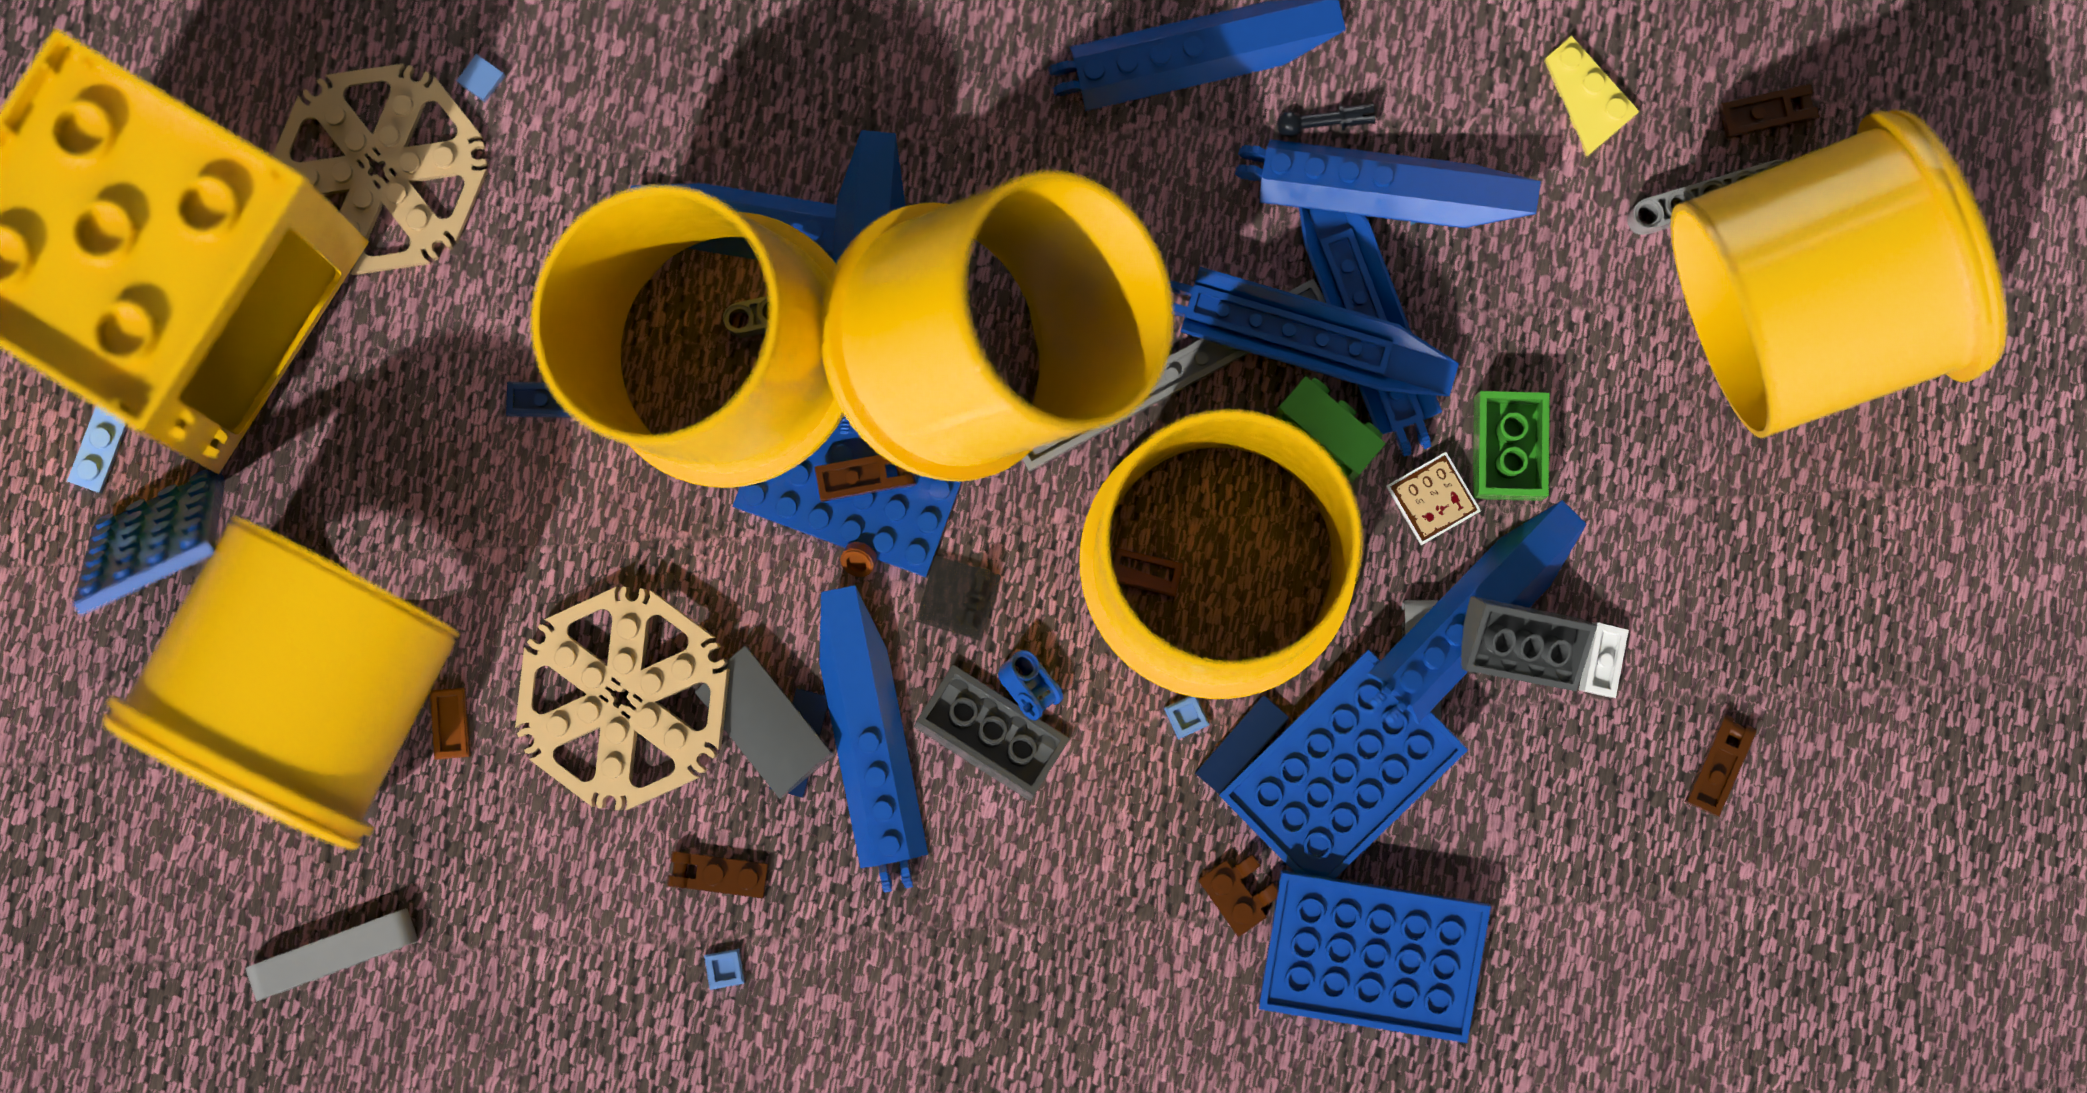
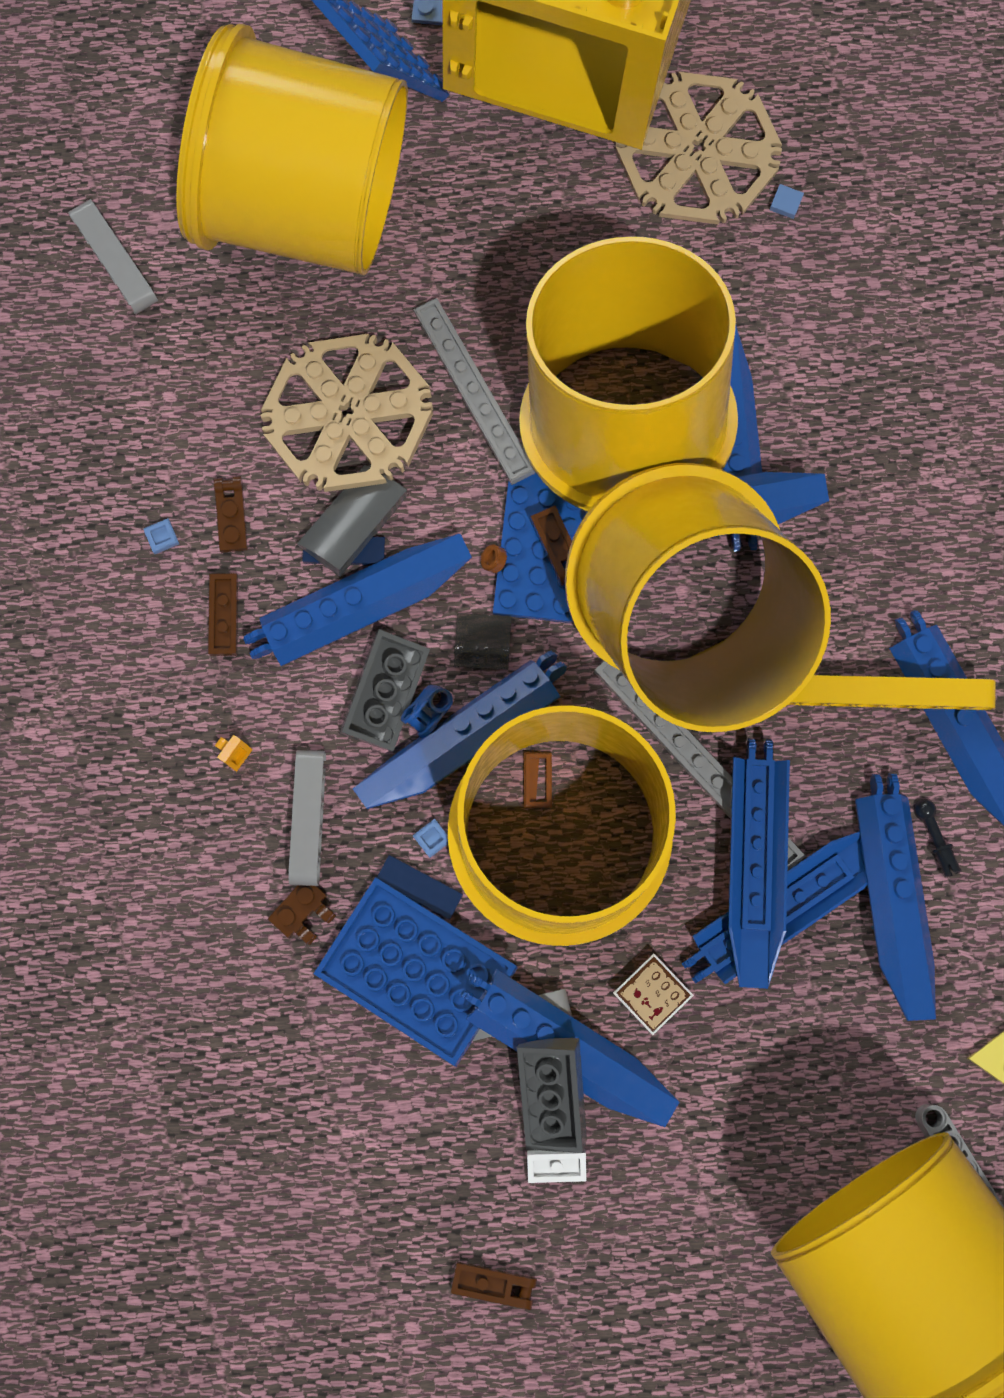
camera: 75 degrees right, 5 degrees down
(450, 723) = (300, 297): dark orange tile -> none
(633, 532) = (474, 391): none -> light grey tile
(846, 911) = (223, 615): none -> reddish brown plate
(1024, 935) = (233, 752): none -> light orange tile
(1070, 647) = (462, 734): none -> blue hinge
(1128, 861) = (307, 818): none -> light grey beam
(1151, 103) = (898, 692): none -> yellow beam
(1331, 426) = (688, 895): bright green brick -> none
(1374, 956) = (274, 1031): blue plate -> none
(1511, 446) = (712, 1047): bright green brick -> none

